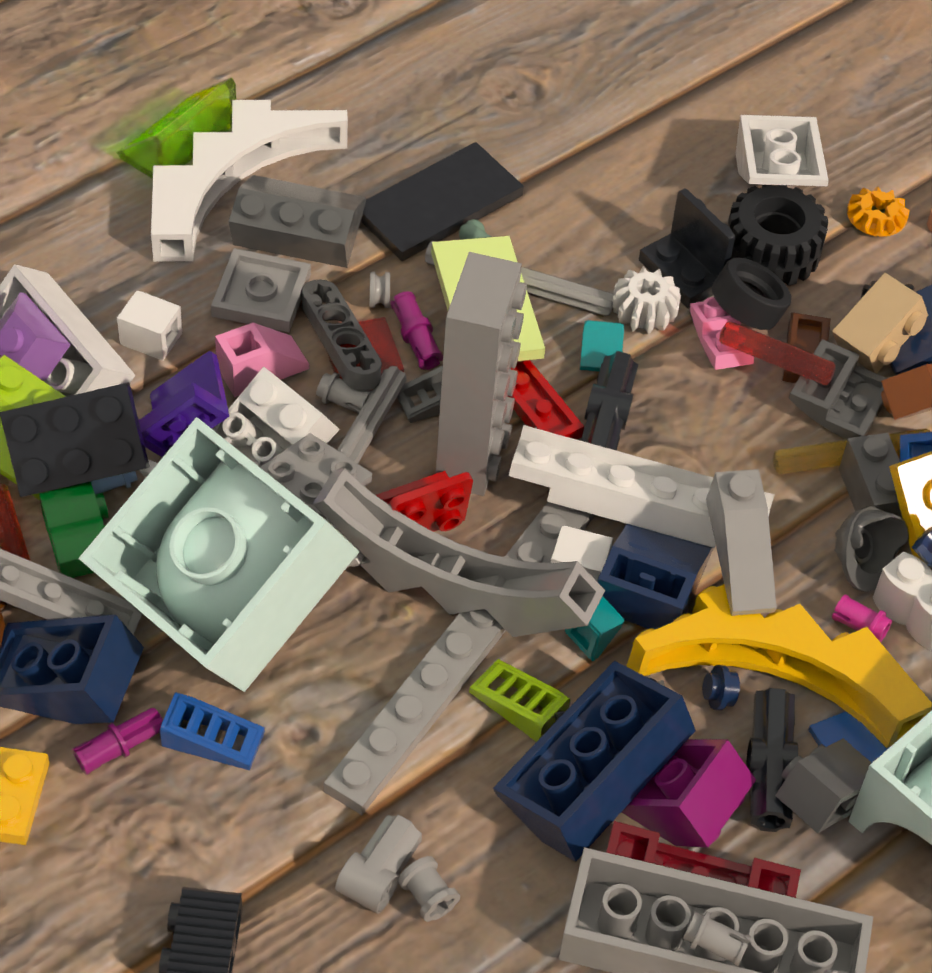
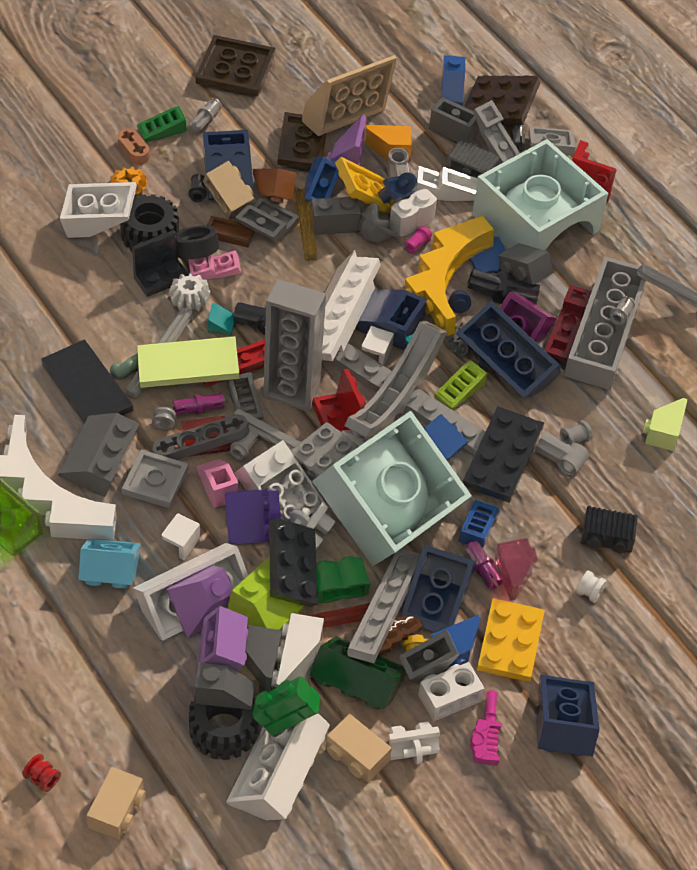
camera: 85 degrees left, 0 degrees up
(73, 911) = (591, 586): none -> white wheel
(101, 247) = (109, 562): none -> medium azure slope
(111, 786) = (515, 564): none -> clear pink slope
(354, 755) = (503, 454): none -> black plate
(381, 663) = (445, 436): none -> blue piece
(743, 540) = (389, 261): light grey slope -> none
(777, 353) = (247, 236): clear red axle -> none

